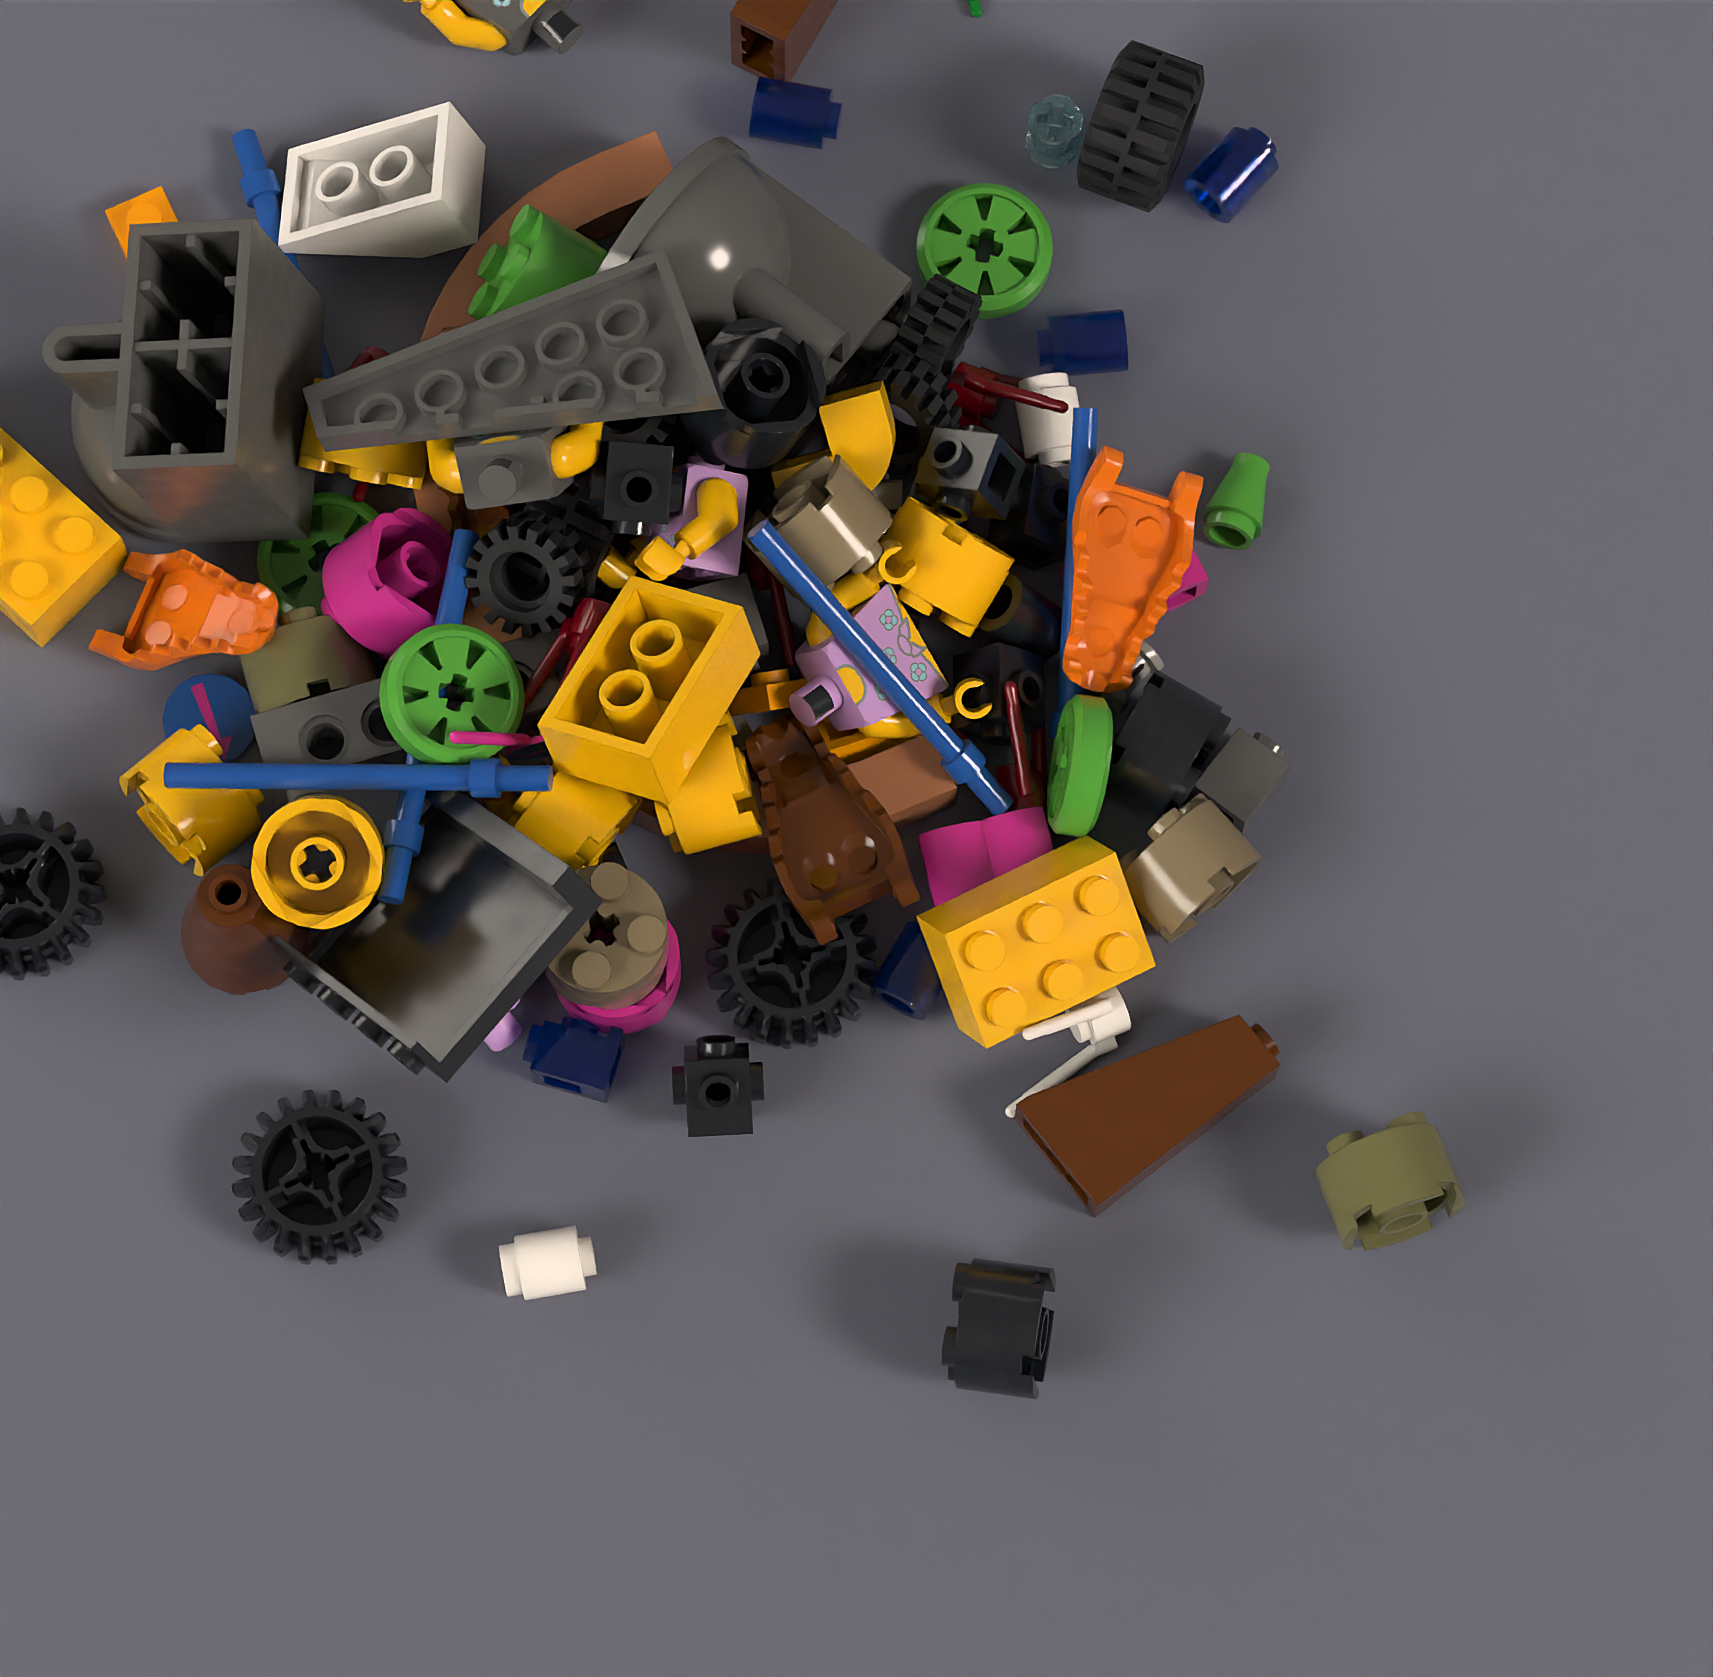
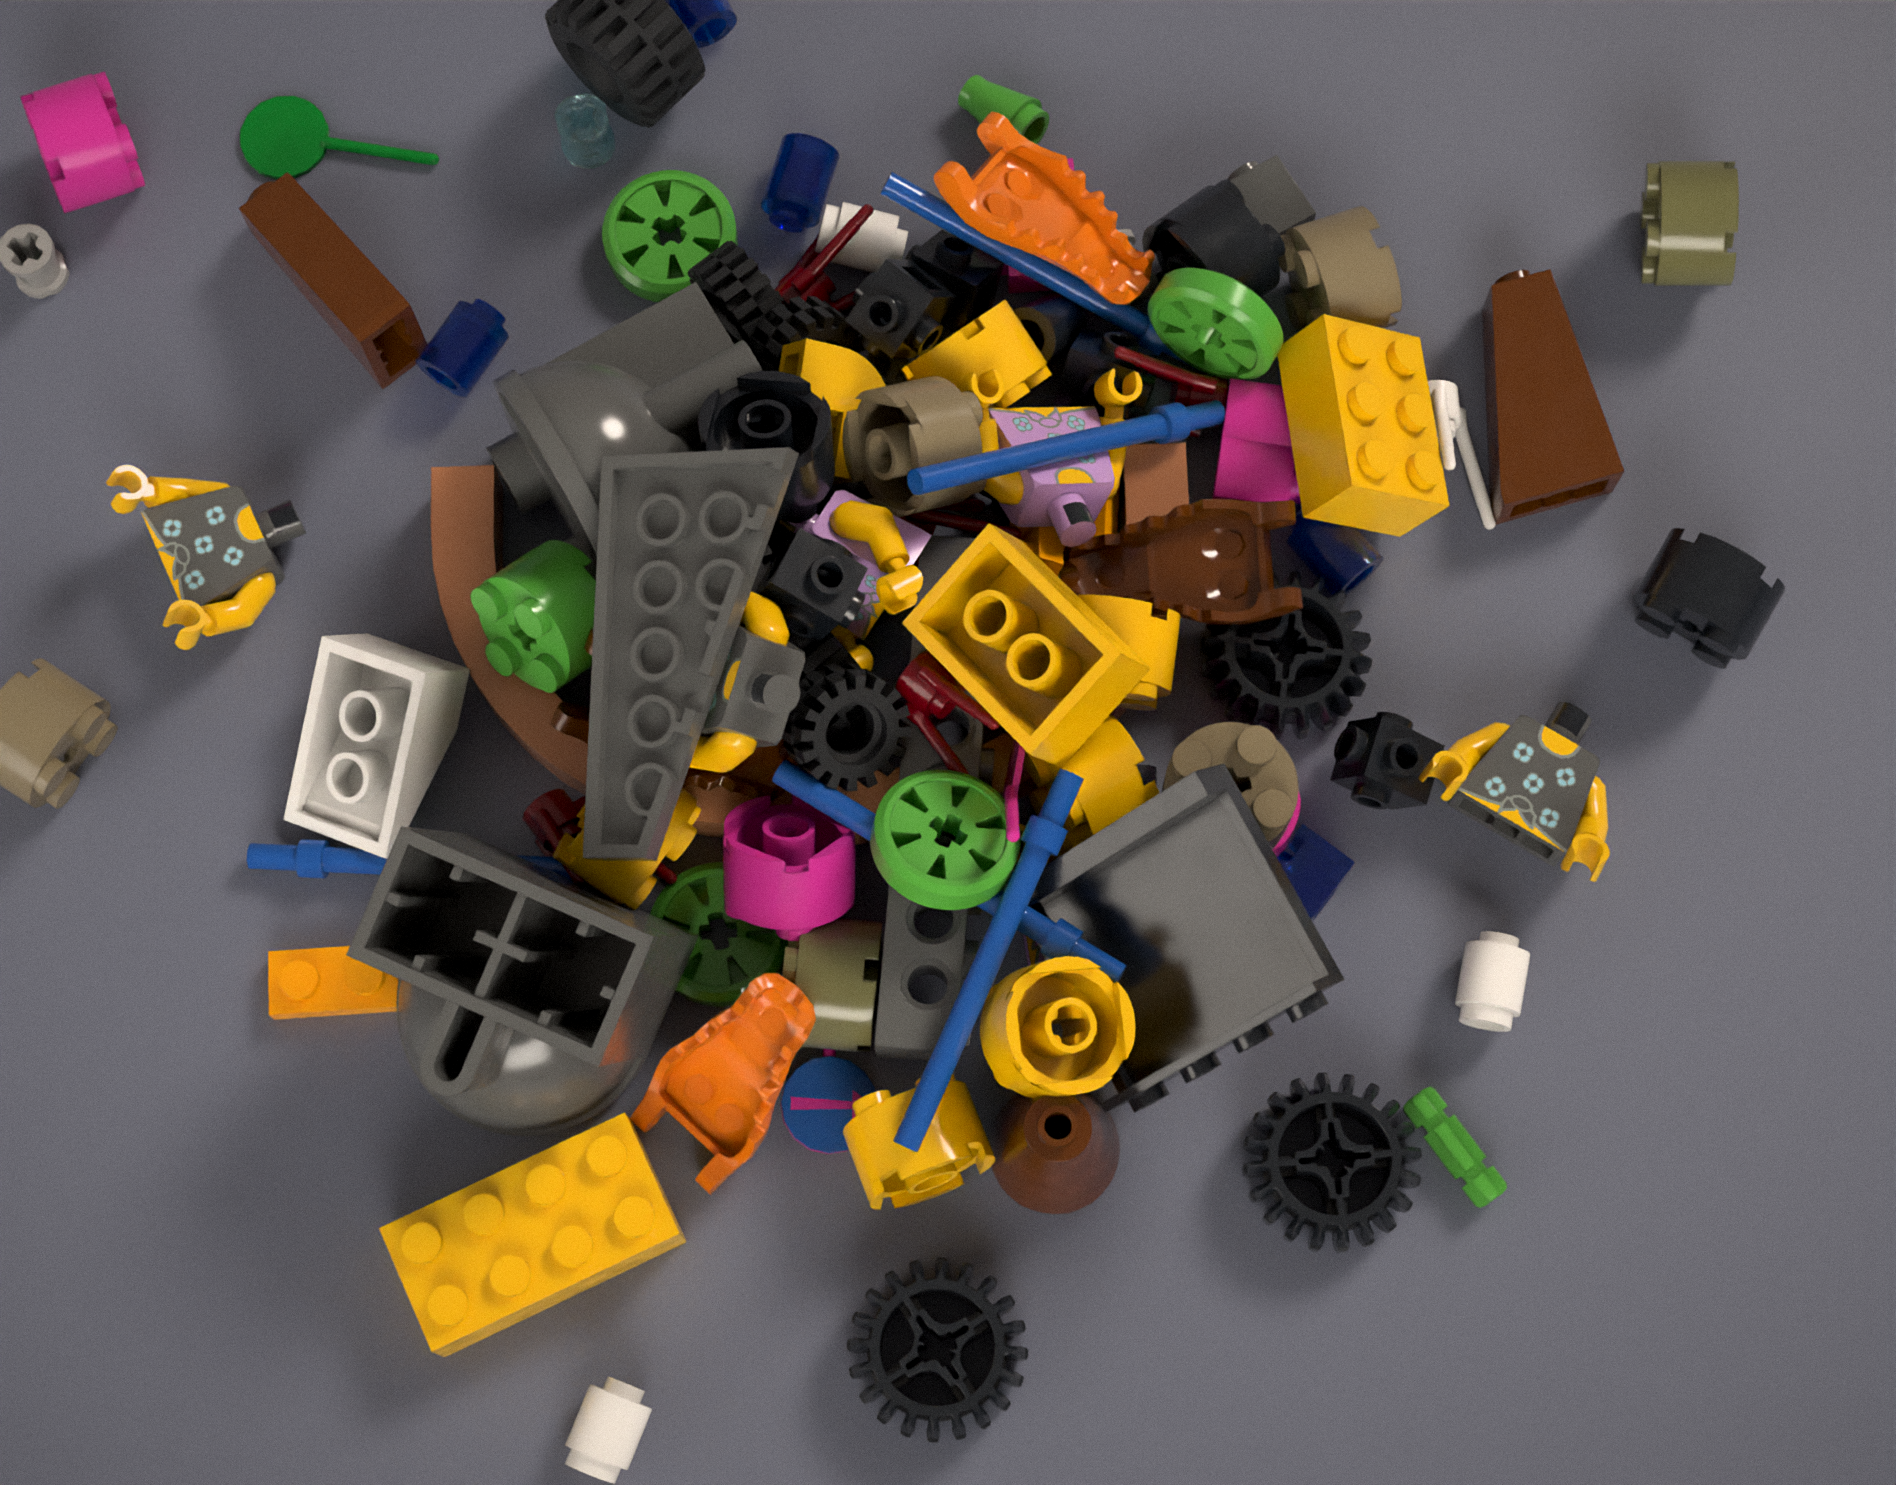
camera: 65 degrees left, 0 degrees up
(380, 1287) = (1455, 1147): none -> bright green axle
(750, 1230) = (1531, 786): none -> torso

